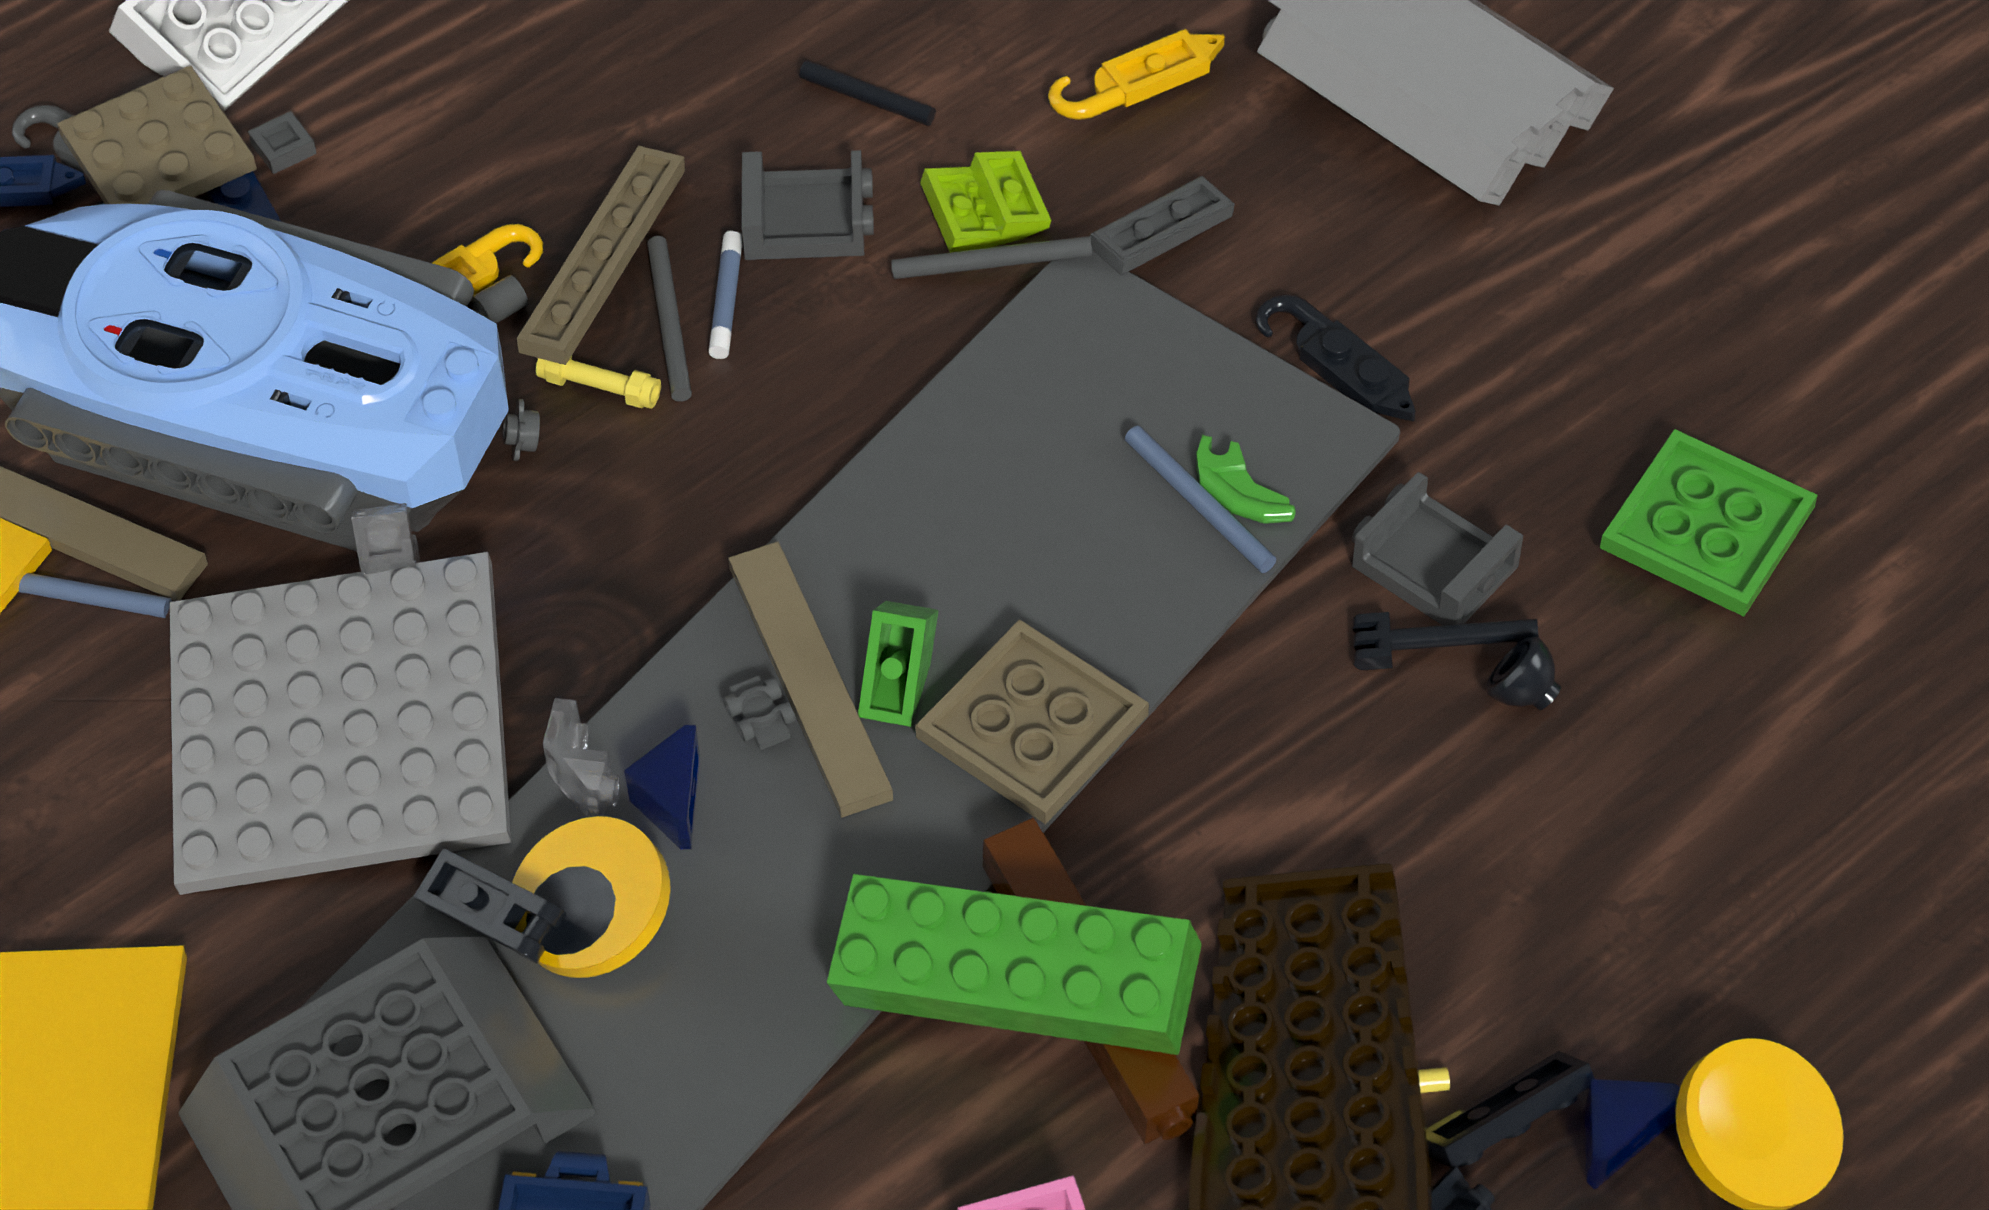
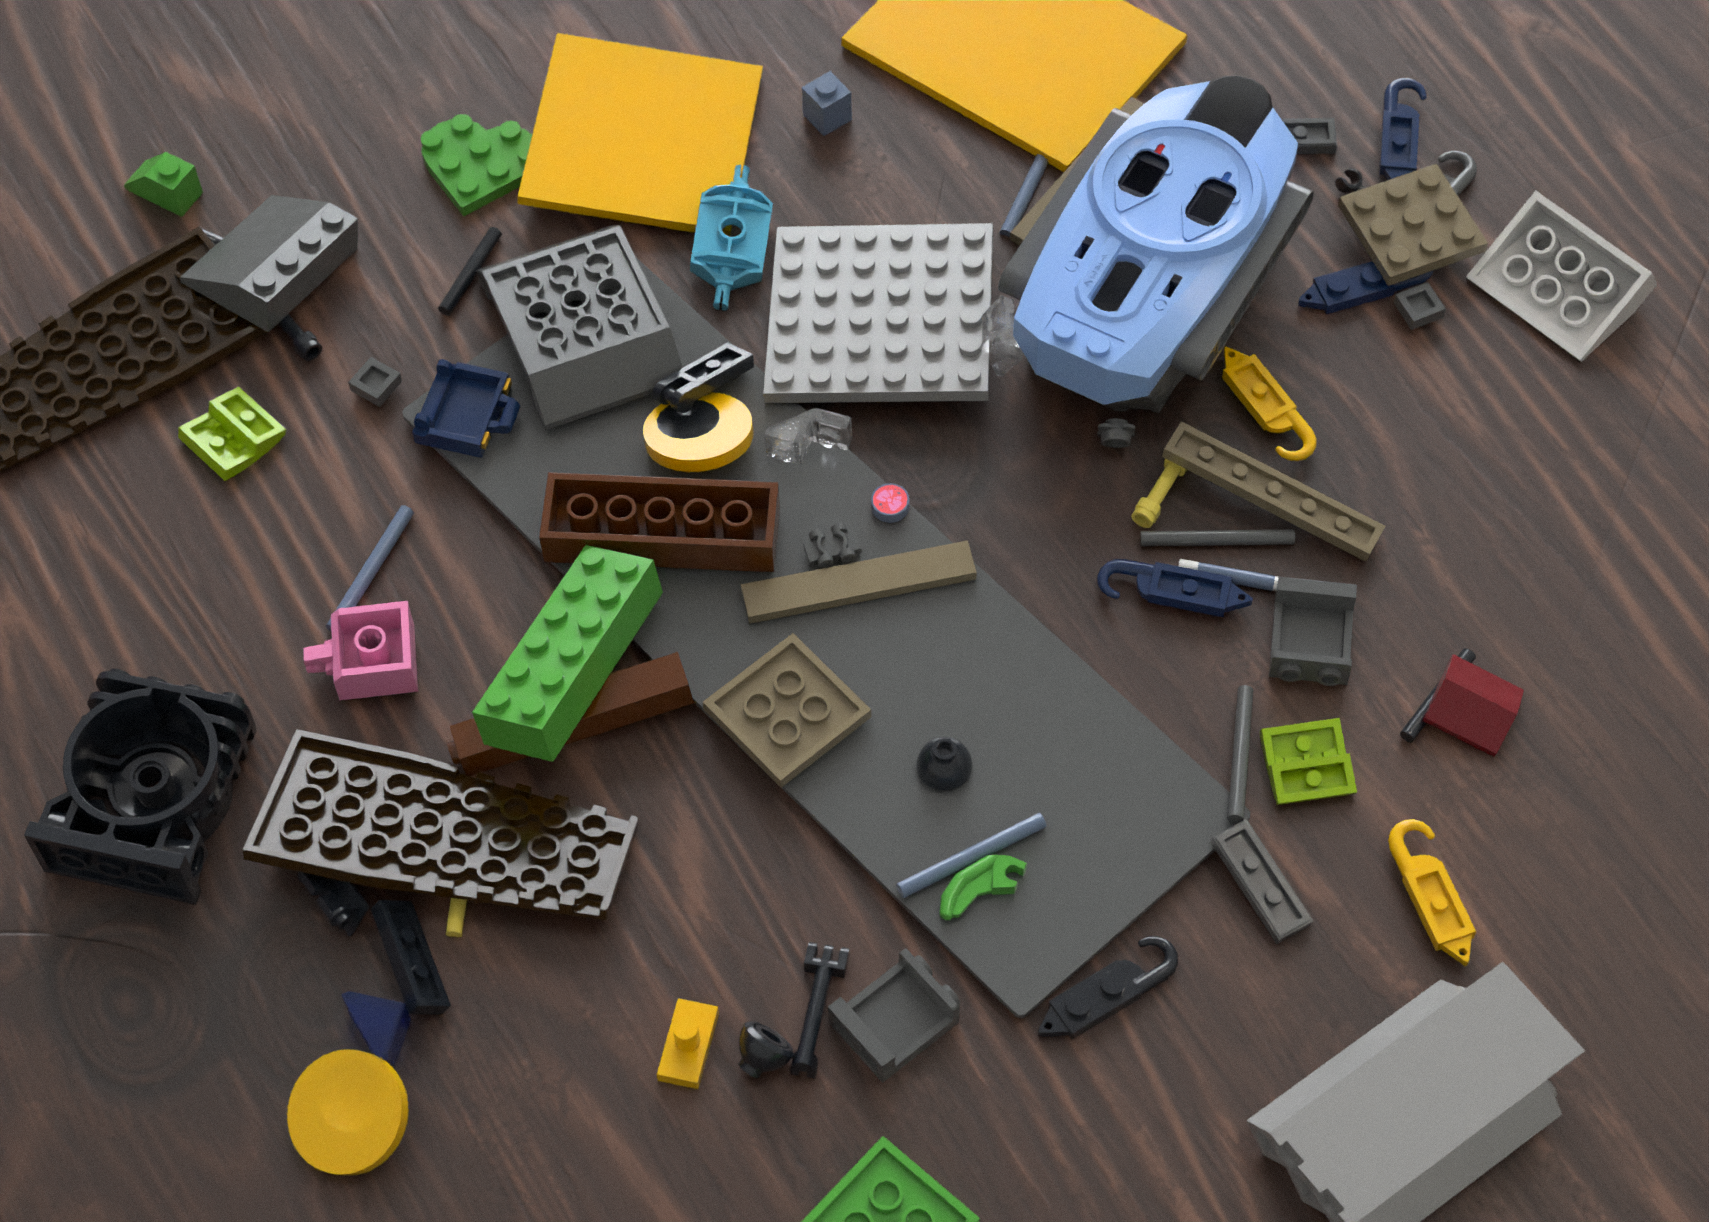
camera: 100 degrees right, 5 degrees up
(243, 944) = (724, 259): none -> medium azure plate
(500, 299) = (1244, 430): dark grey hinge -> none
(666, 785) = (794, 490): clear blue slope -> none
(673, 659) = (890, 503): none -> tile
(756, 346) = (1177, 586): none -> dark blue plate
(761, 913) = (663, 520): none -> reddish brown brick
(880, 53) = (1474, 705): none -> dark red slope
(897, 662) = (855, 630): bright green slope -> none
(1073, 542) = (944, 764): none -> black brick
(1531, 769) = (688, 1043): none -> yellow tile

